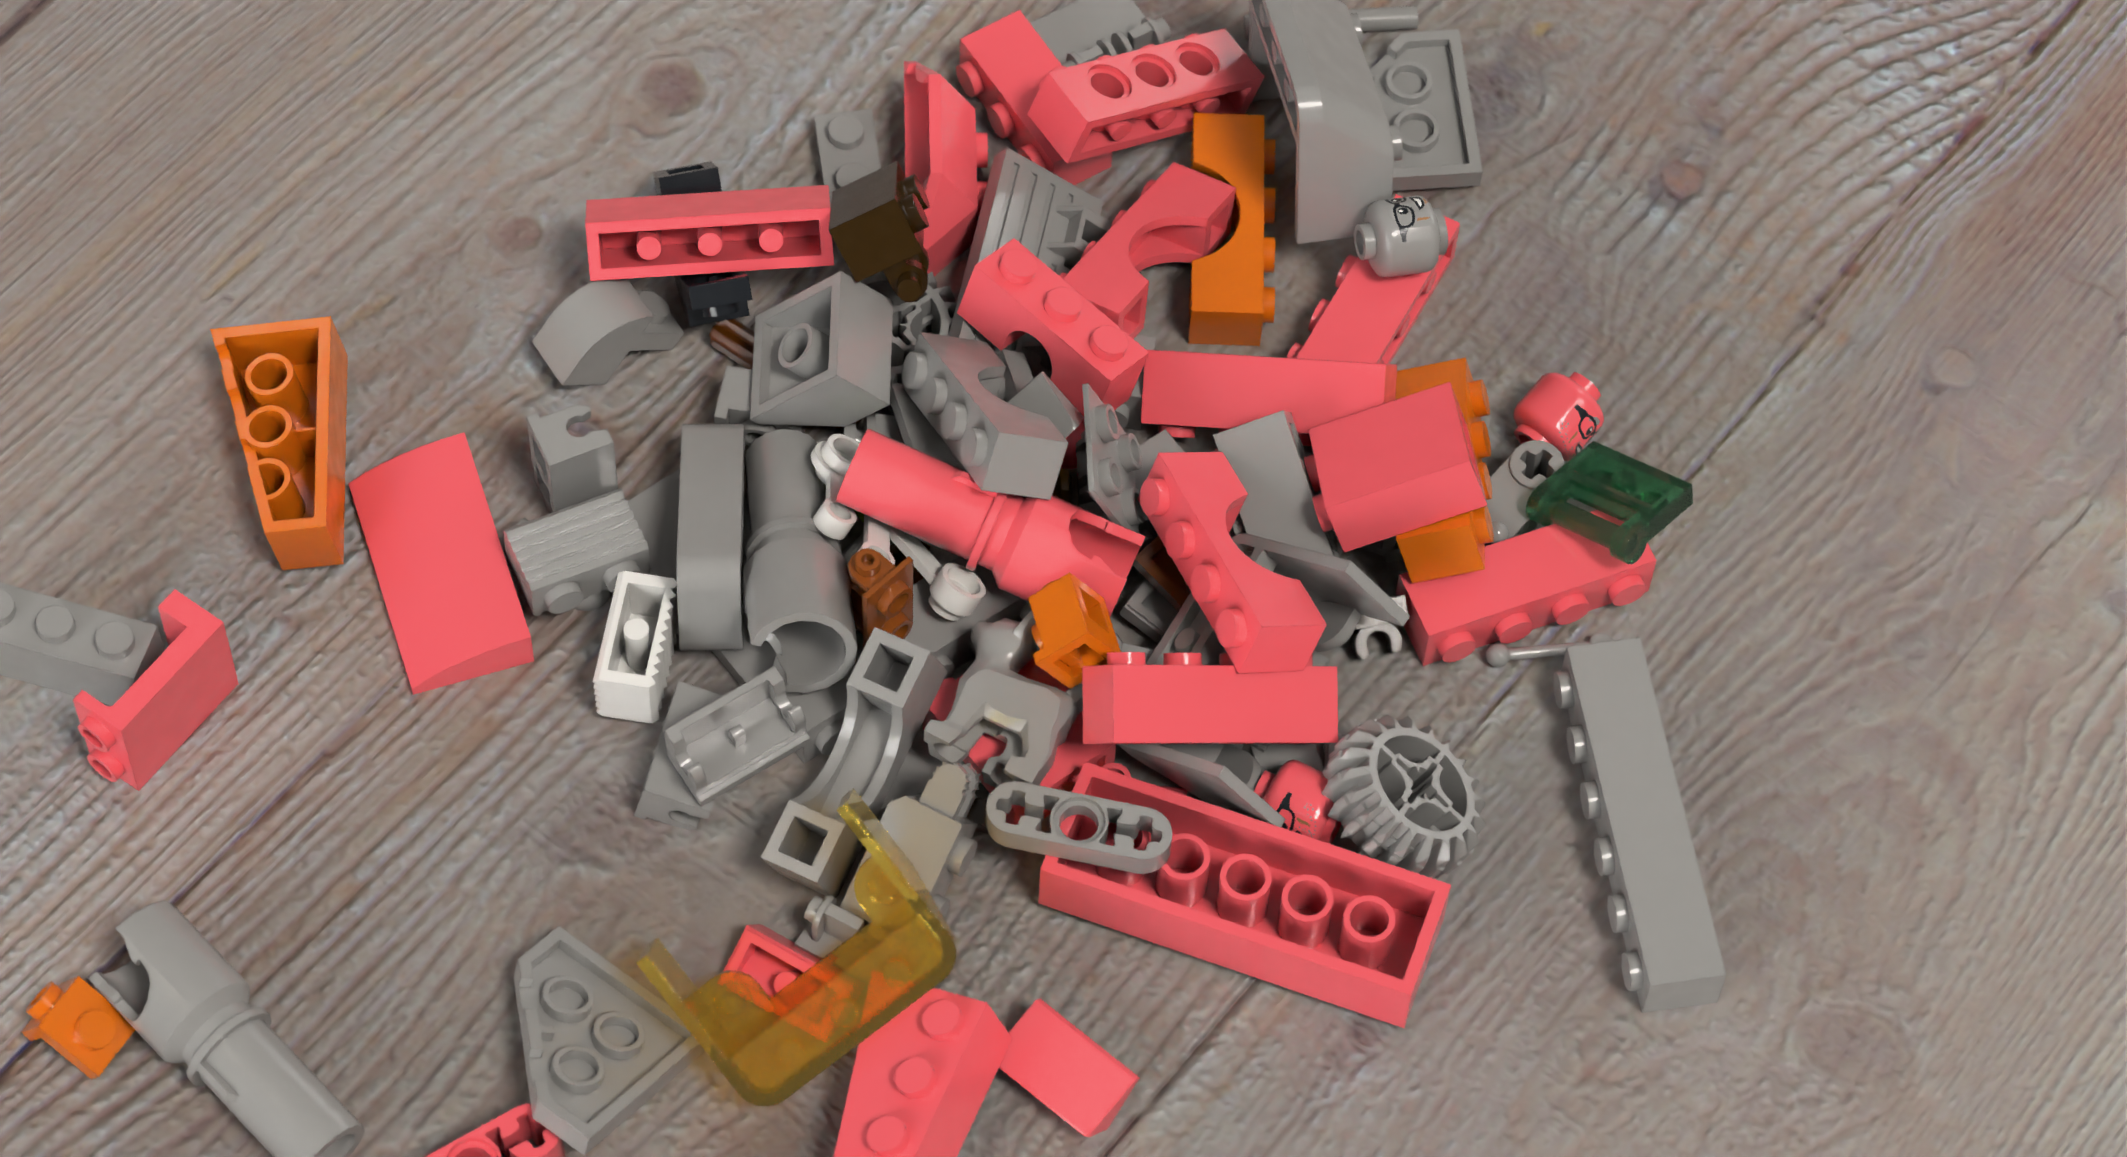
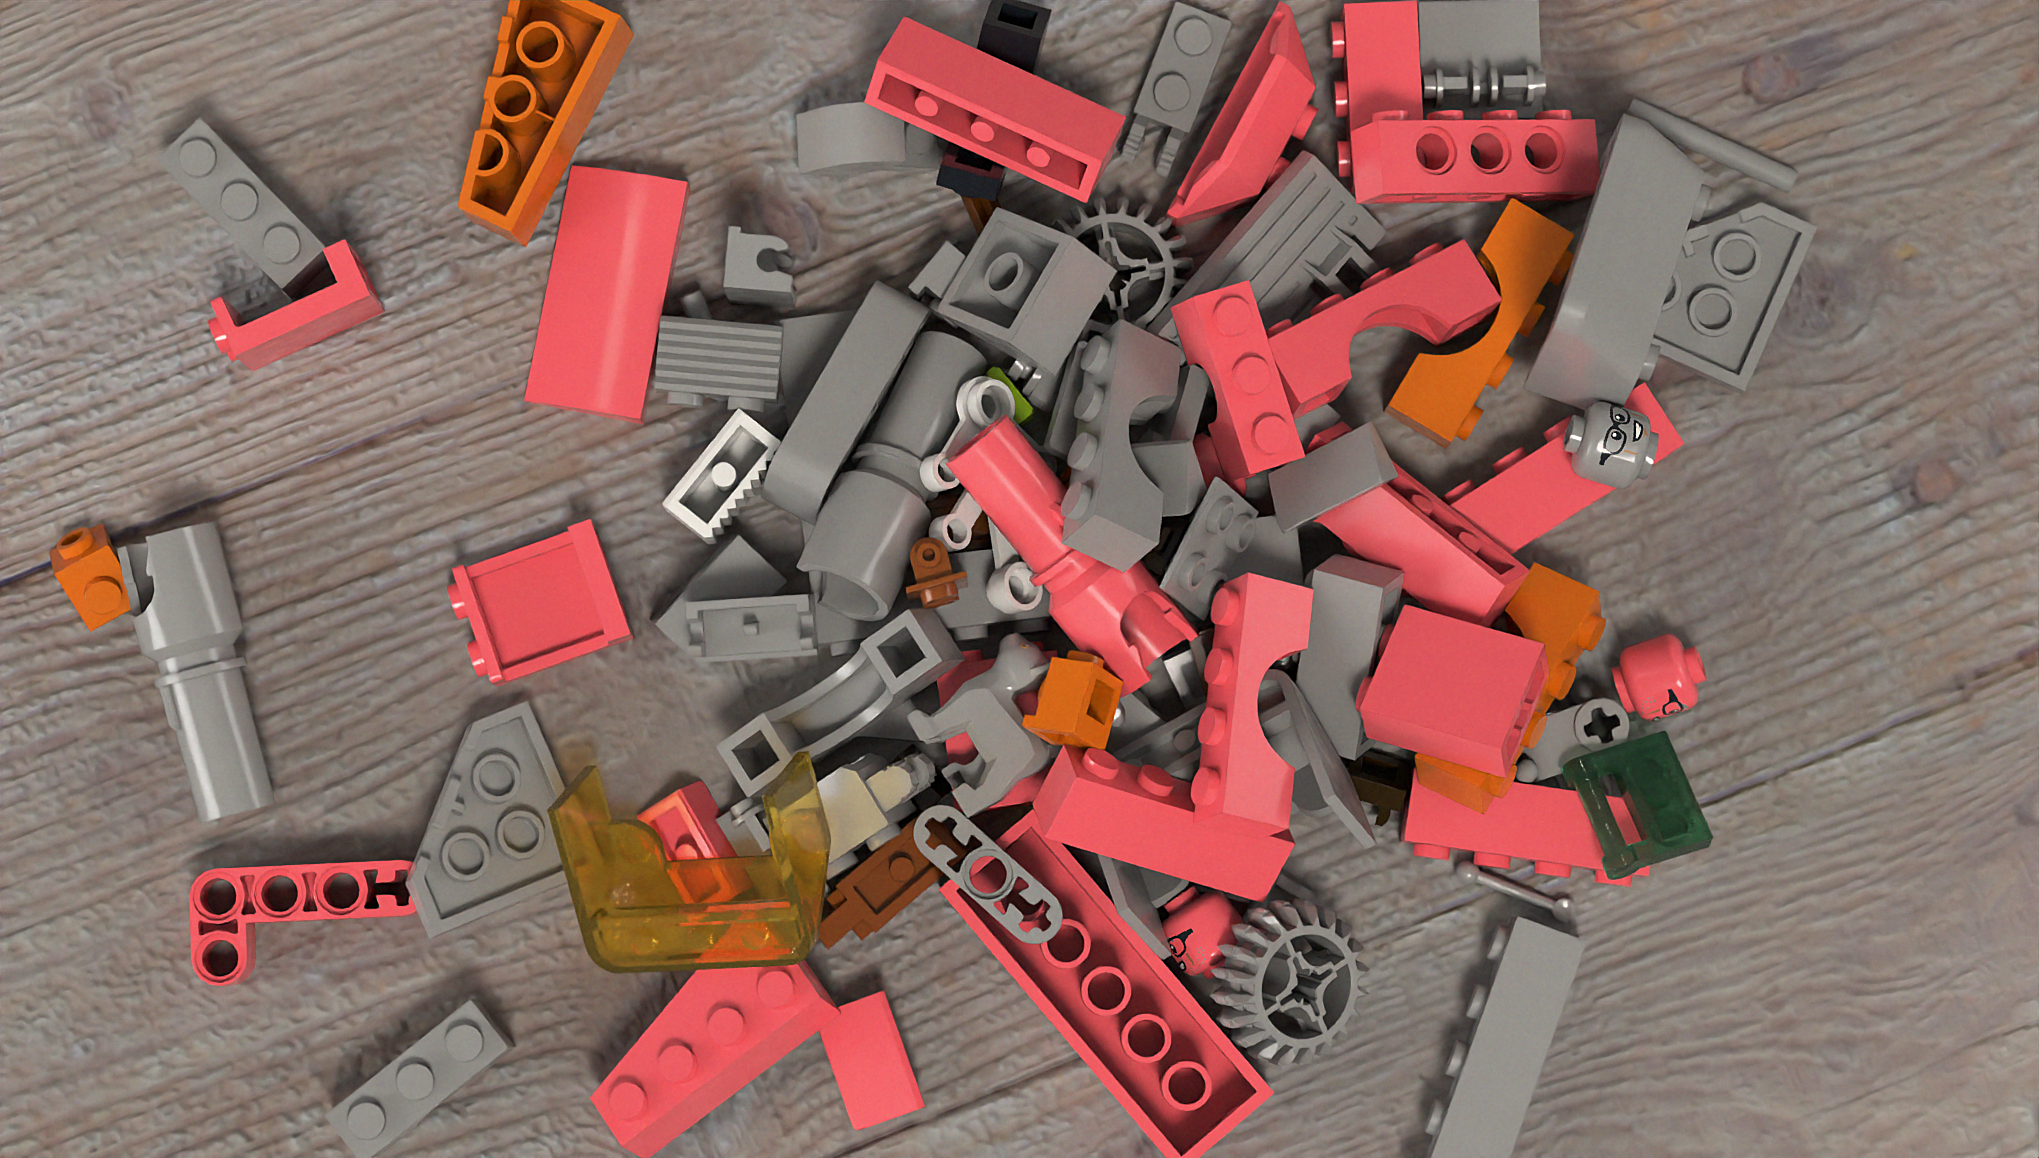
camera: 30 degrees right, 25 degrees up
(528, 841) = (540, 605): none -> coral panel
(881, 228) = (1137, 203): dark brown brick -> none
(989, 911) = (886, 884): none -> dark orange hinge
(1180, 370) = (1330, 477): none -> light grey slope

